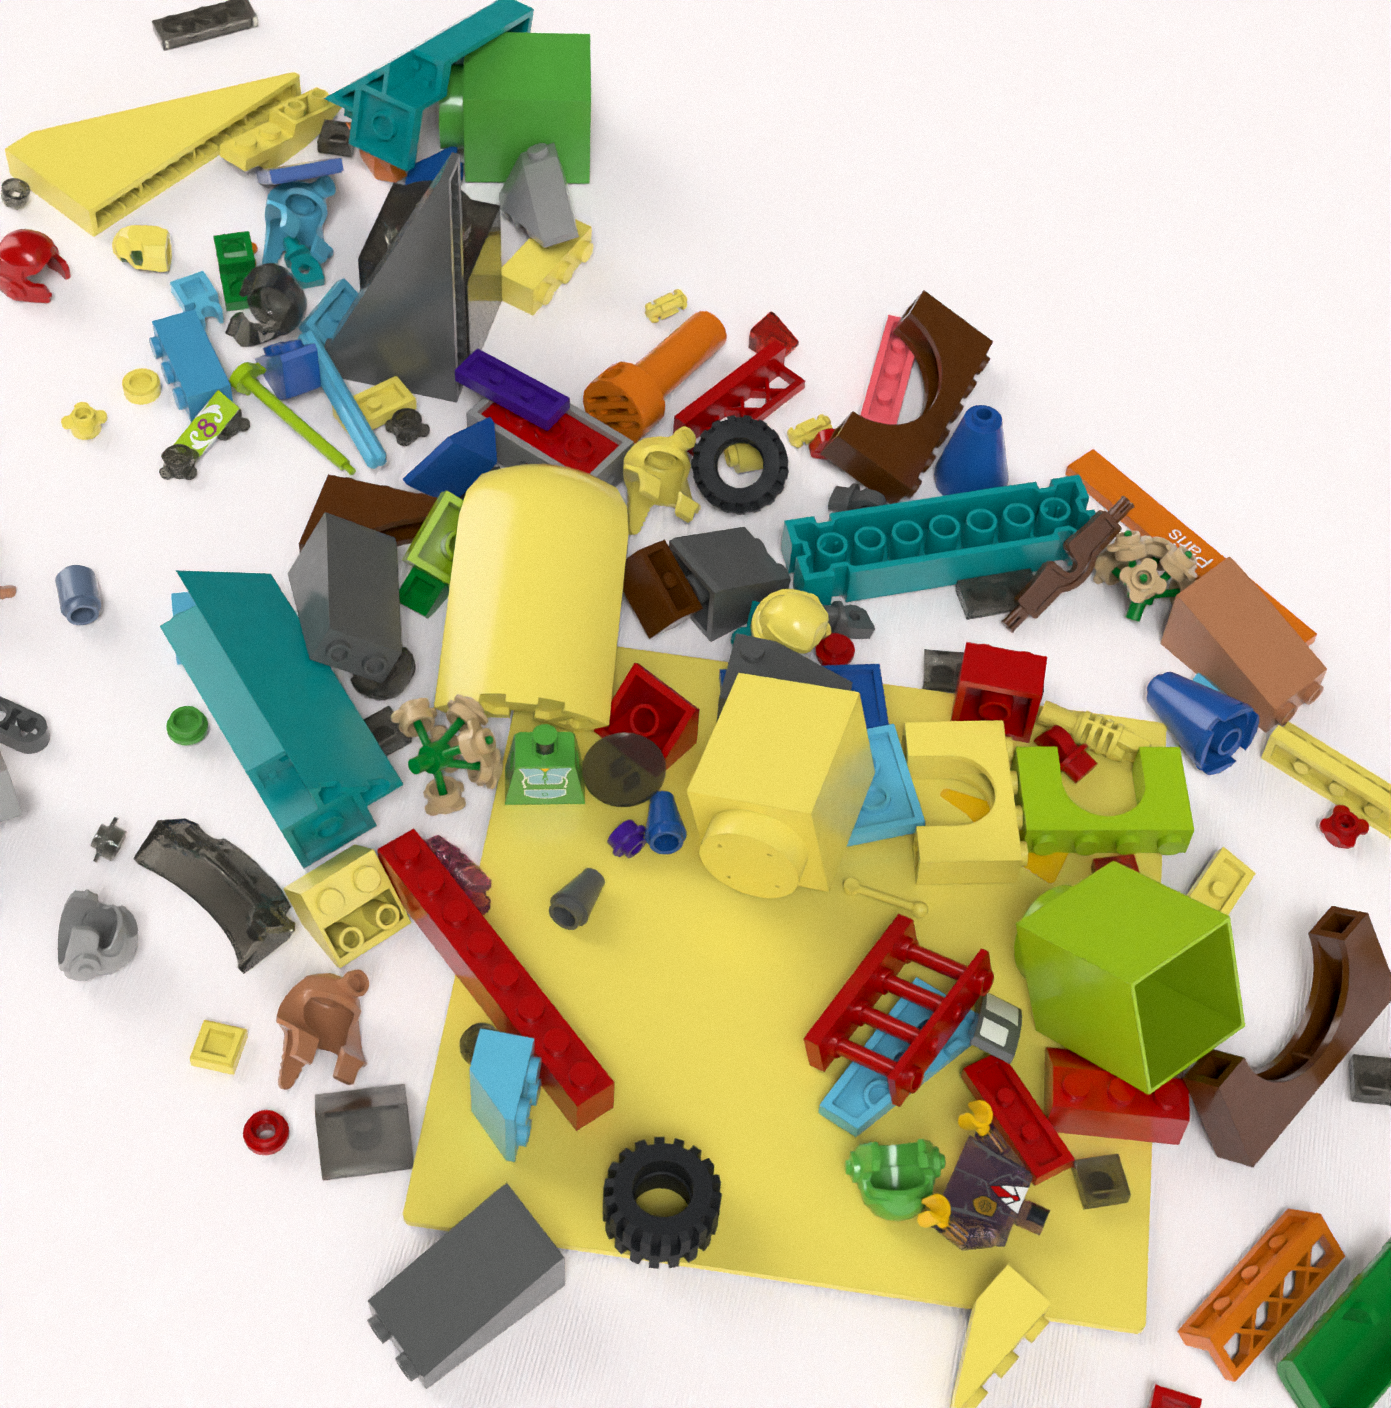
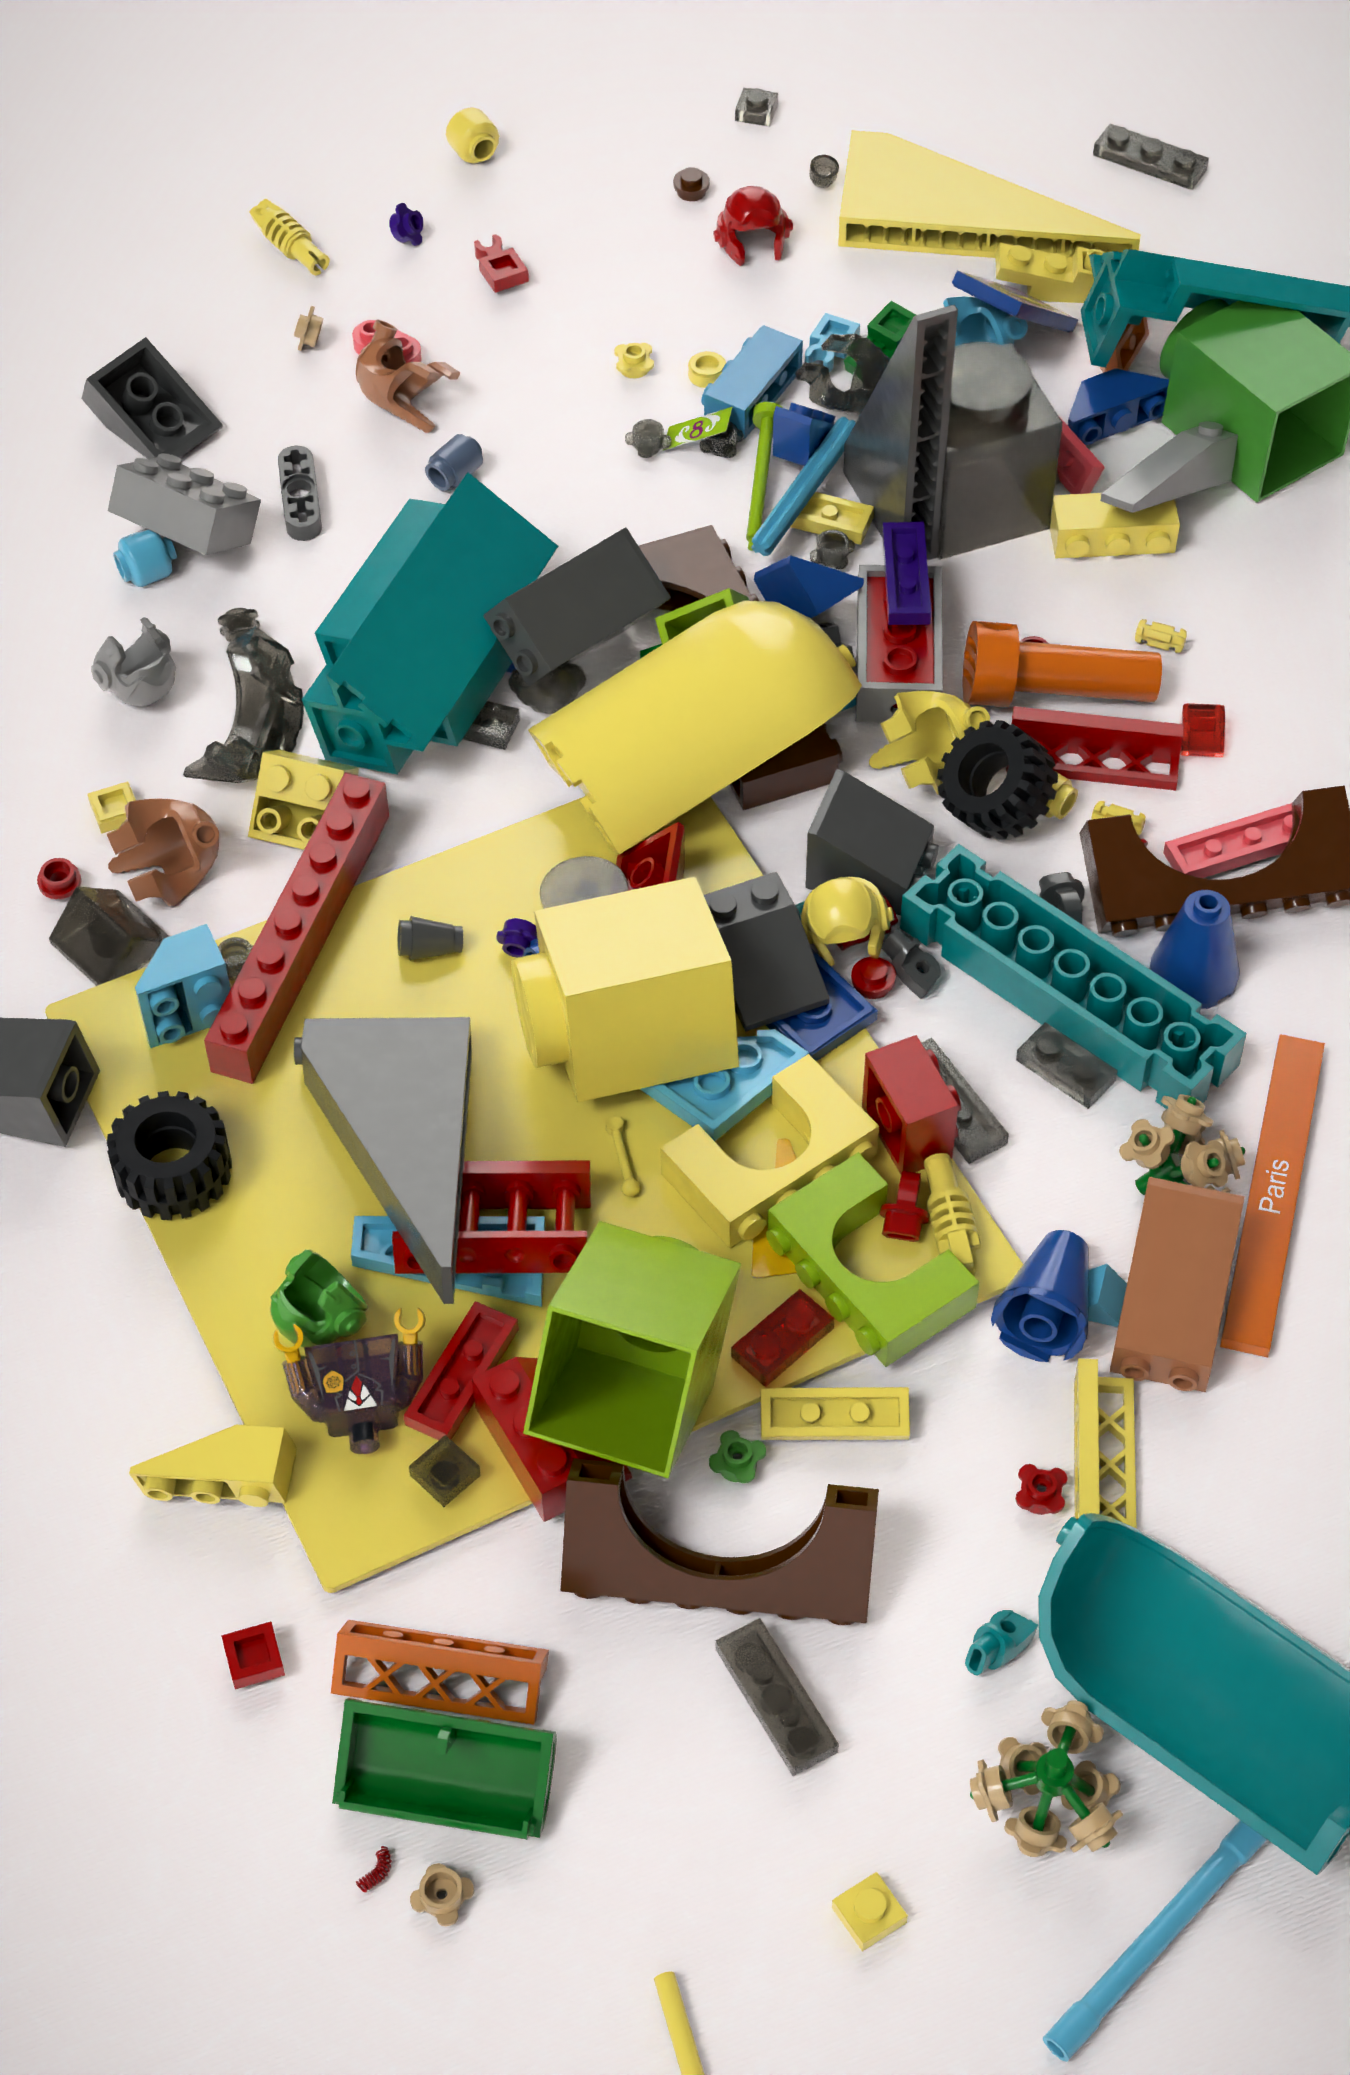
camera: 60 degrees right, 0 degrees up
(144, 247) = (848, 278): light yellow rock -> none
(445, 748) = (490, 763): tan plant -> none
(463, 870) = (389, 848): clear pink hinge -> none
(544, 768) = (526, 827): bright green torso -> none
(658, 589) = (796, 801): reddish brown brick -> none
(754, 1006) = (402, 1113): none -> slope
(996, 1027) = (521, 1297): slope -> none
(1083, 550) = (1153, 1082): reddish brown piece -> none

